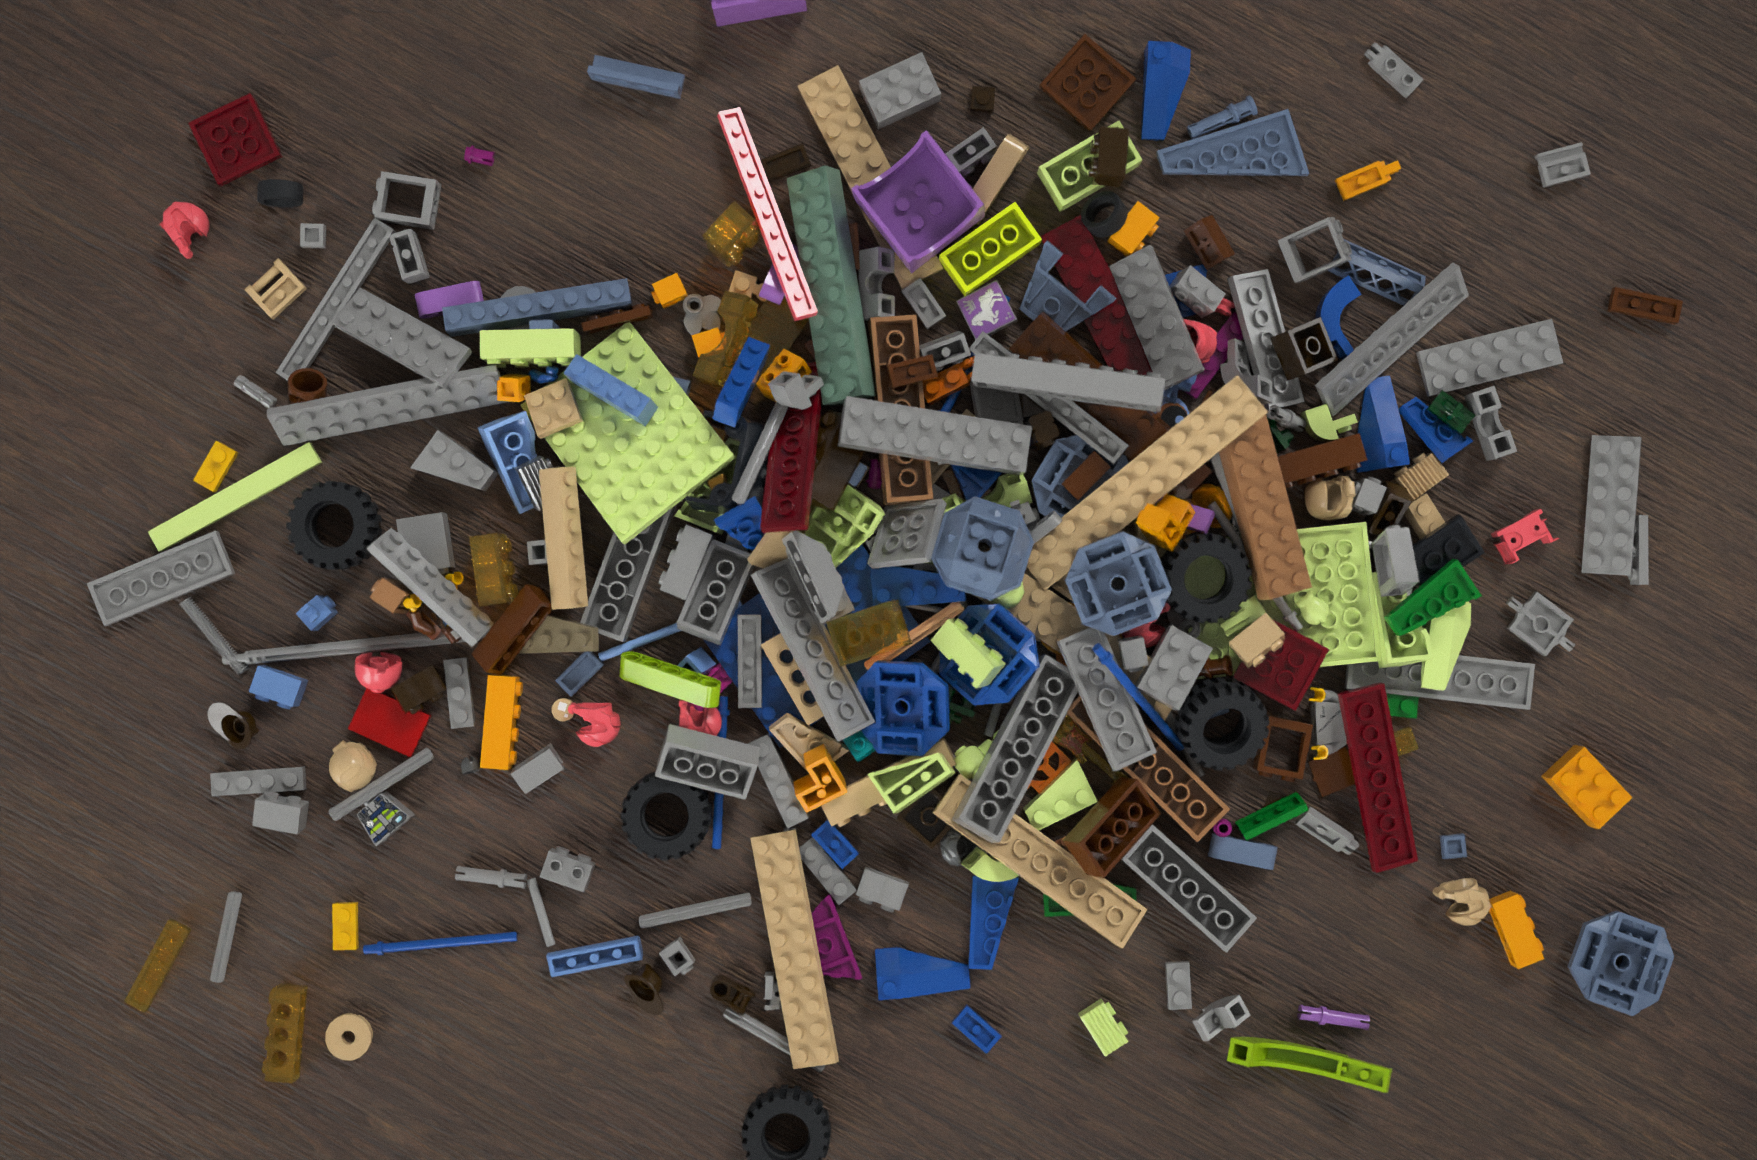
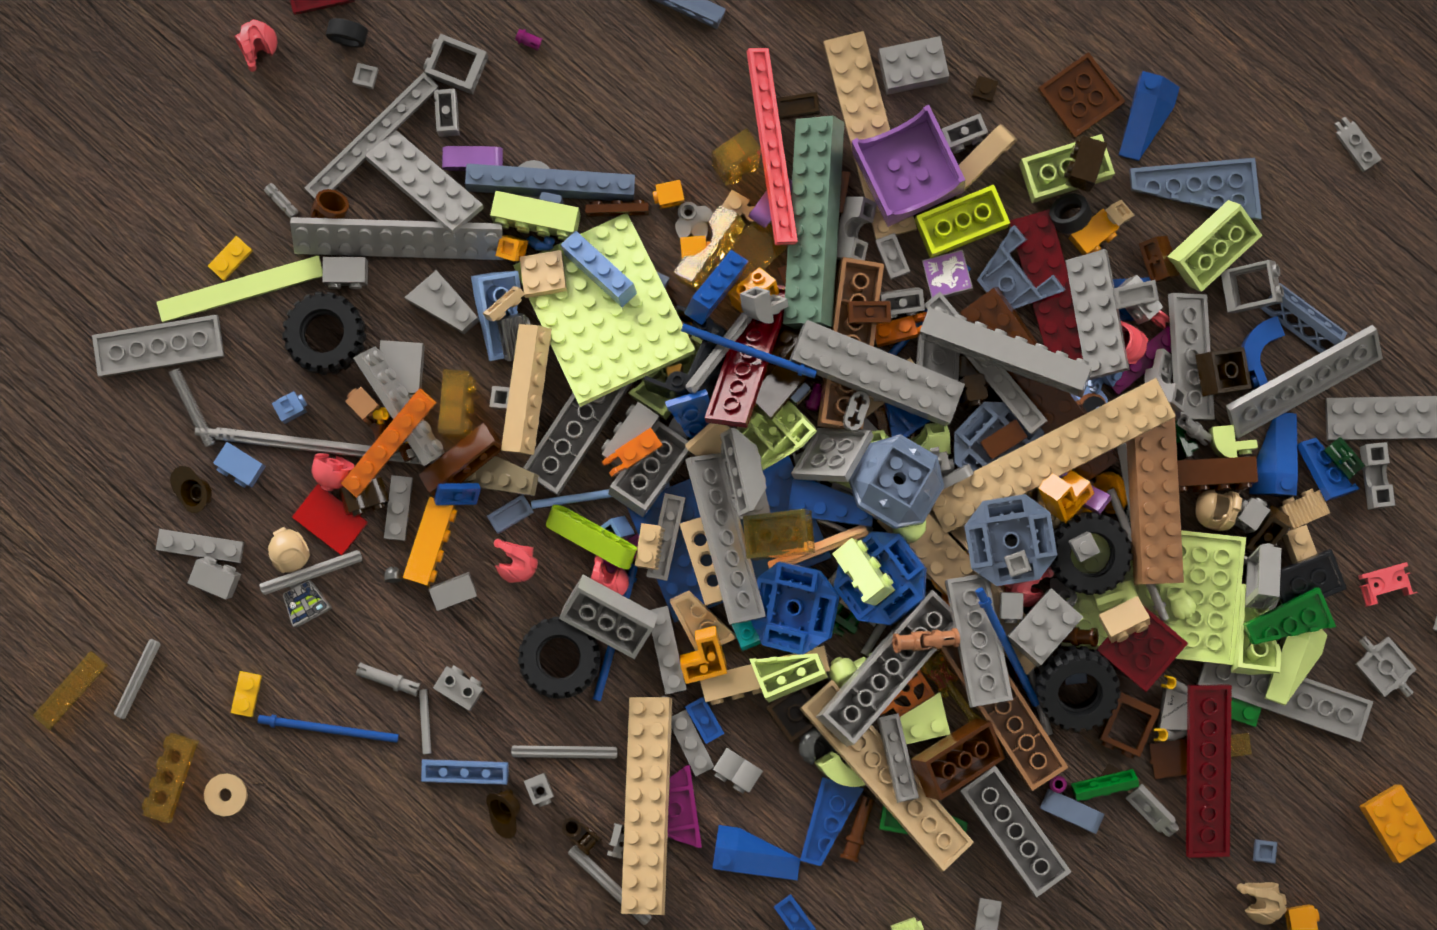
camera: 15 degrees right, 5 degrees down
(280, 294) = (324, 120): tan plate -> none
(341, 453) = (345, 272): none -> light grey brick
(428, 630) = (388, 442): none -> orange plate
(516, 666) = (457, 494): none -> blue plate
(523, 444) = (509, 299): none -> tan plate
(560, 709) = (486, 544): tan tile -> none
(693, 579) = (634, 451): none -> orange hinge
(734, 677) = (649, 546): none -> tan brick
(851, 451) = (800, 369): none -> blue bar
(916, 481) = (851, 409): none -> light grey beam
(1021, 932) = (855, 840): none -> reddish brown pin
(1048, 841) = (897, 758): none -> light grey tile
(1051, 710) = (926, 639): none -> nougat piece
(1130, 607) = (1017, 563): none -> light grey tile
(1156, 202) = (1119, 213): none -> tan plate
(1194, 287) = (1135, 294): none -> light grey tile
(1198, 574) = (1084, 546): none -> light grey brick
(1231, 114) = (1203, 151): sand blue pin -> none
(1266, 214) = (1214, 245): none -> yellowish green brick
(1366, 179) = (1311, 234): light orange hinge -> none

